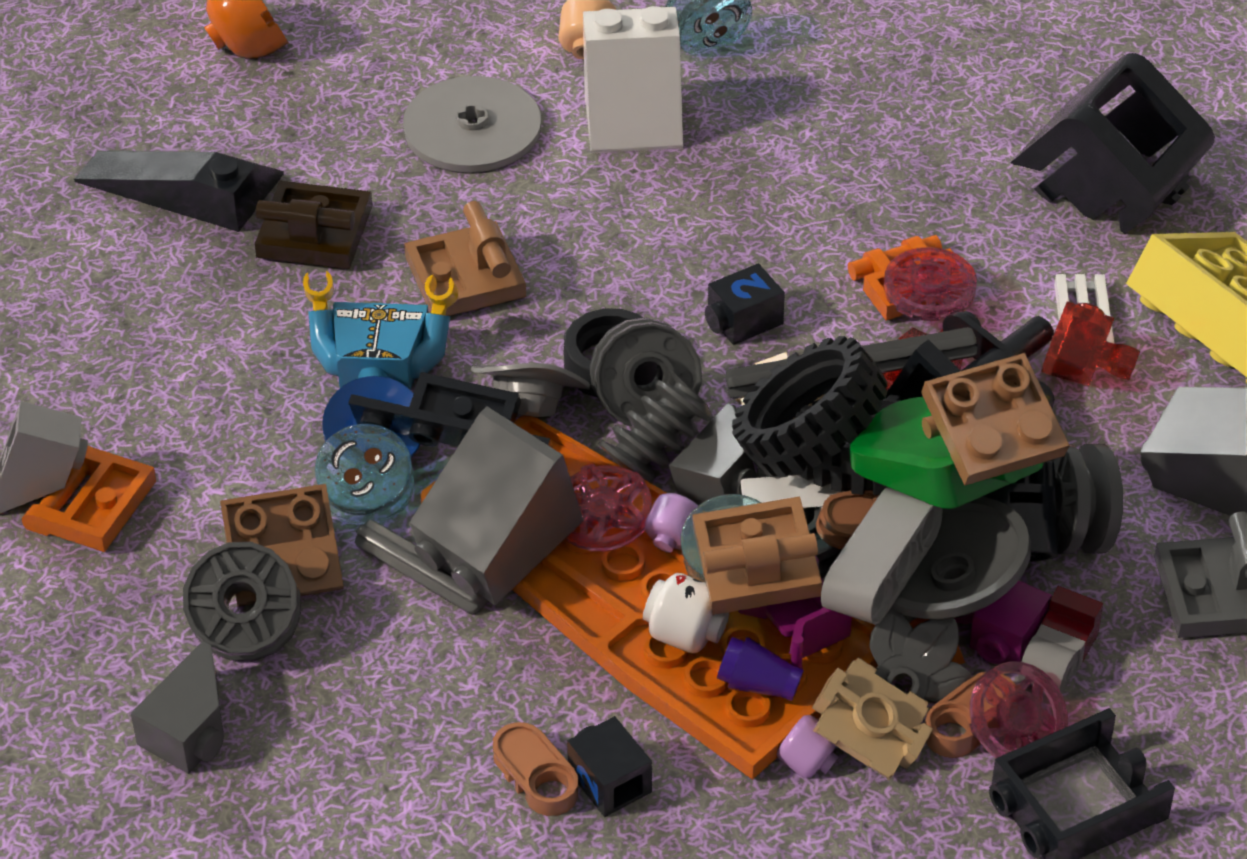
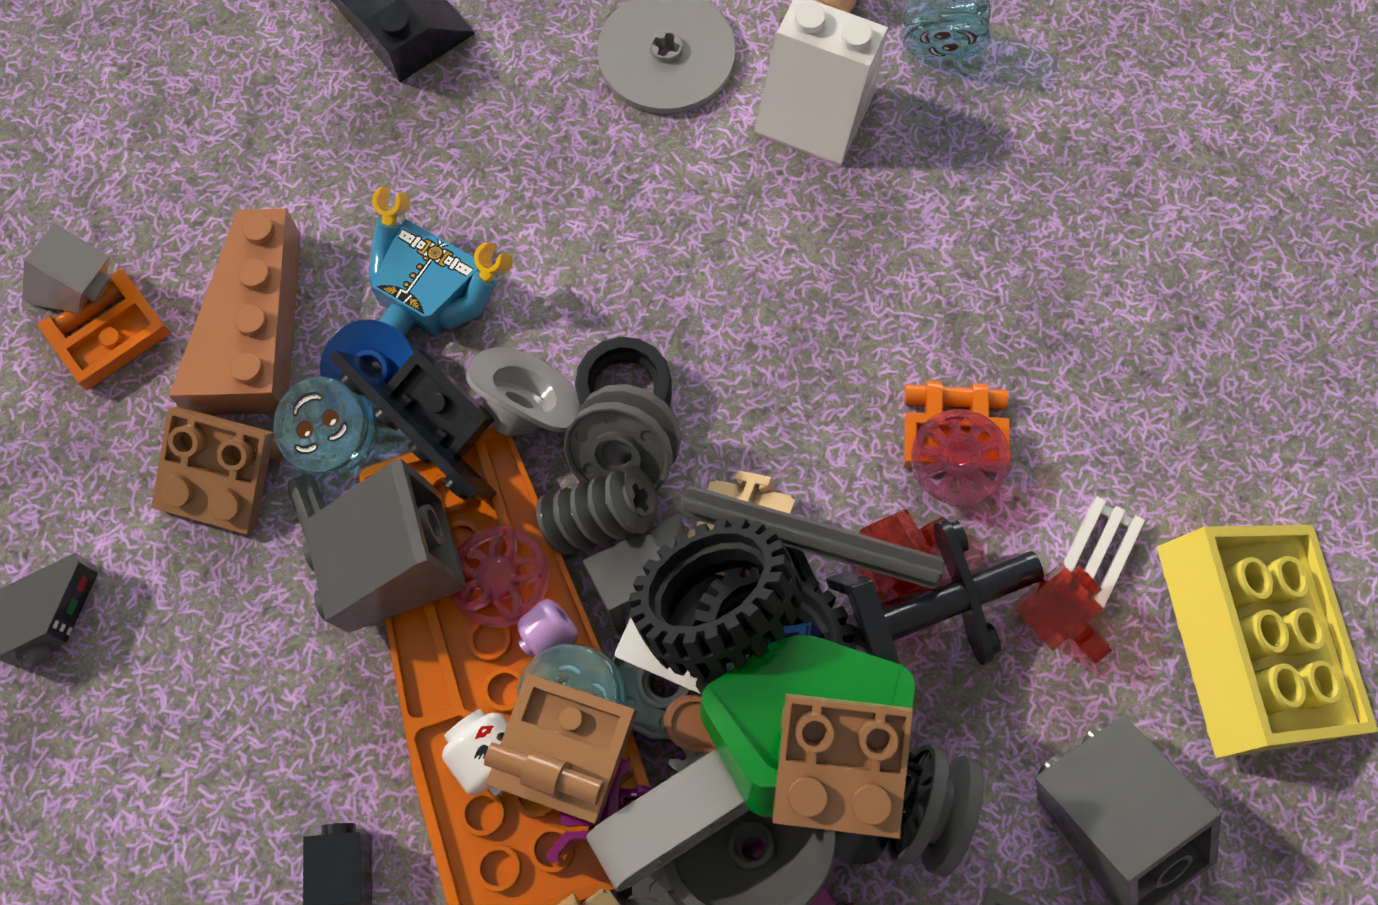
camera: 30 degrees right, 25 degrees up
(234, 426) = (246, 323): none -> nougat wedge
(236, 569) = (107, 526): dark grey wheel -> none
(312, 224) = (457, 108): dark brown plate -> none
(473, 258) = (557, 222): medium nougat plate -> none
(530, 760) = (281, 816): nougat piece -> none
(745, 304) = (775, 391): black brick -> none
(757, 670) = (515, 851): dark purple cone -> none
(1105, 162) = (1211, 403): black piece -> none

